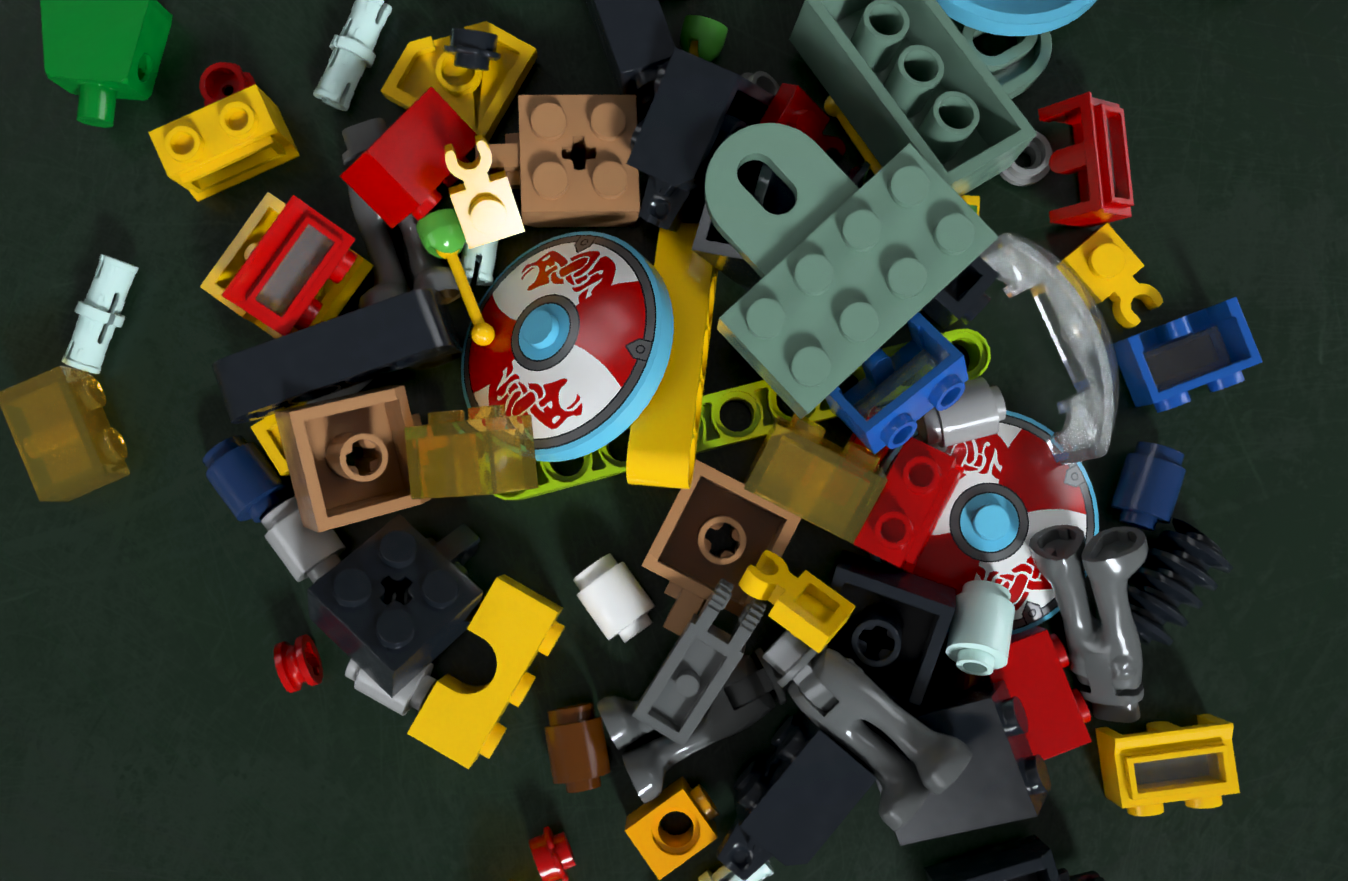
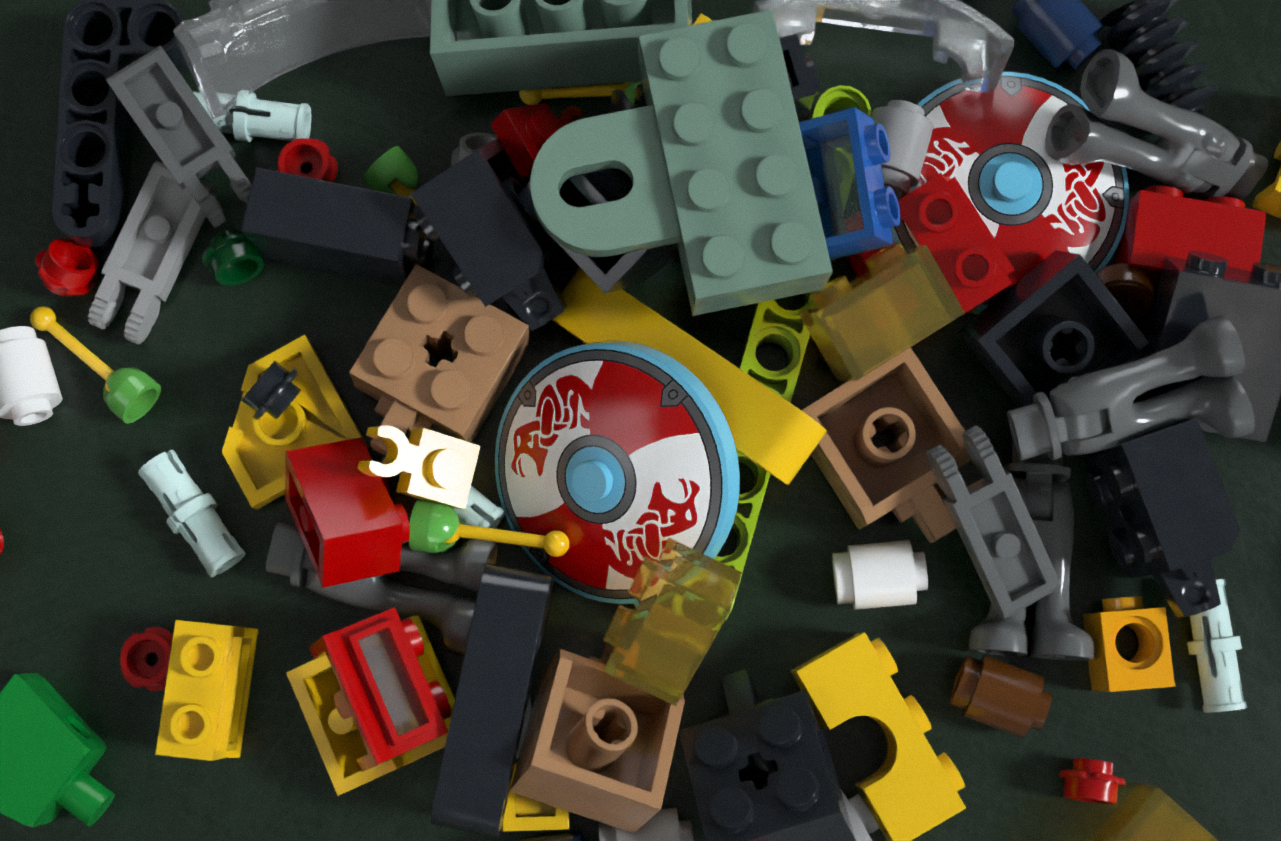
camera: 65 degrees left, 5 degrees down
(800, 604) = (995, 389): yellow plate -> none
(981, 628) = (1109, 244): light aqua brick -> none

